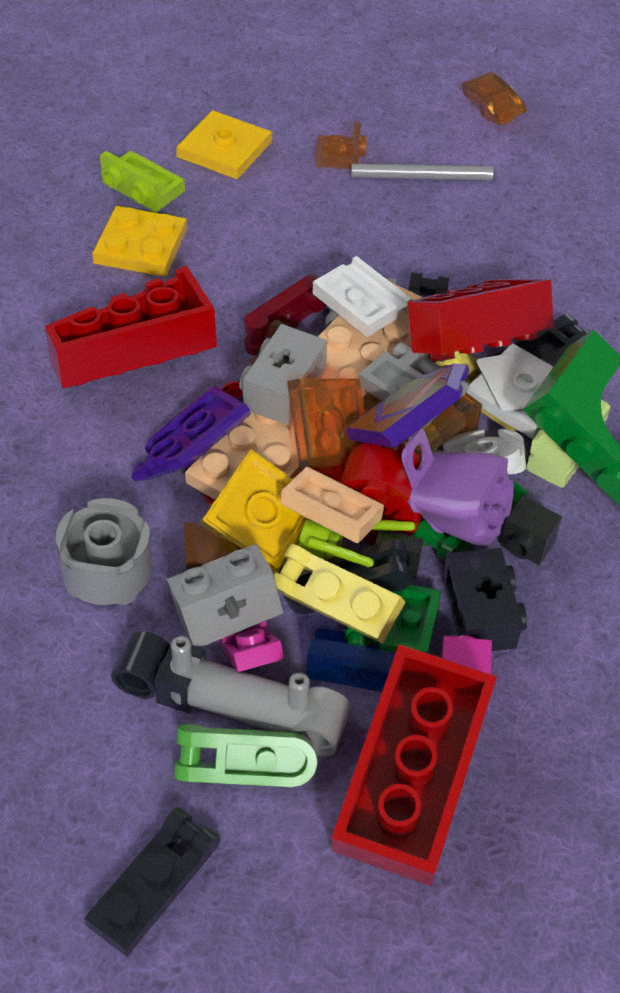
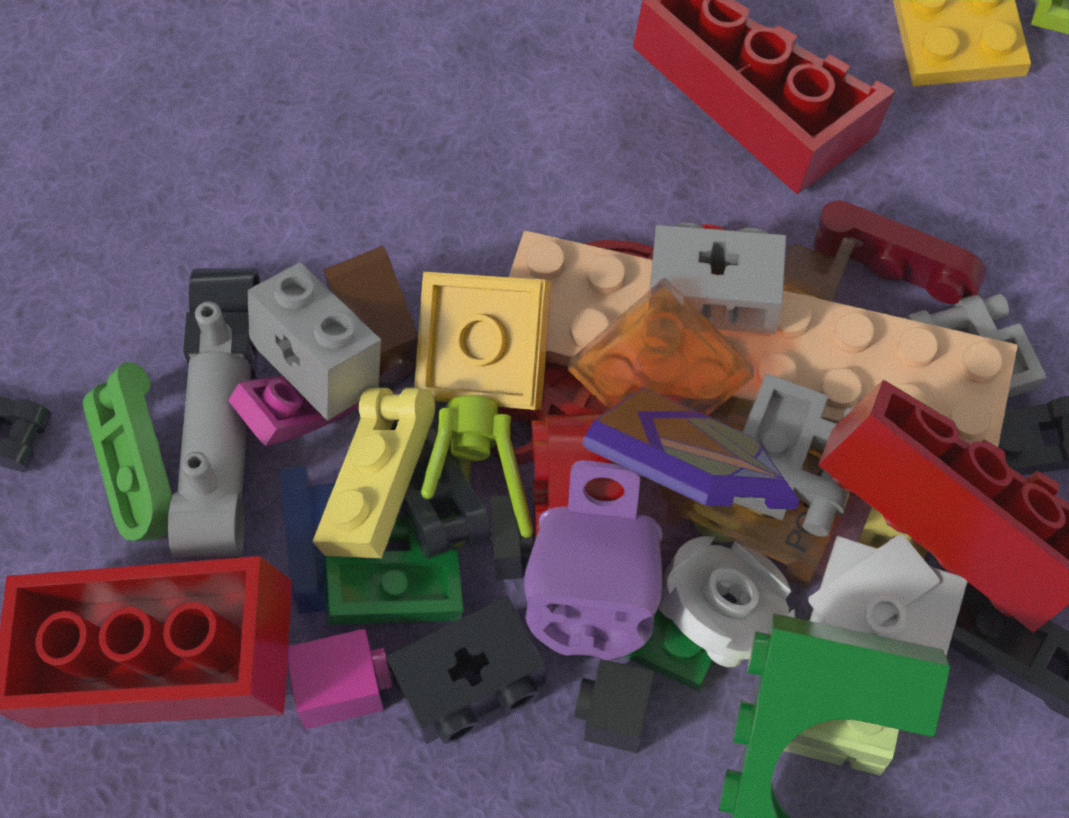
camera: 75 degrees right, 15 degrees up
(104, 552) = (364, 189): light grey brick -> none
(191, 434) = (600, 215): dark purple tile -> none
(332, 504) = (502, 414): light nougat plate -> none
(361, 296) = (928, 329): white plate -> none

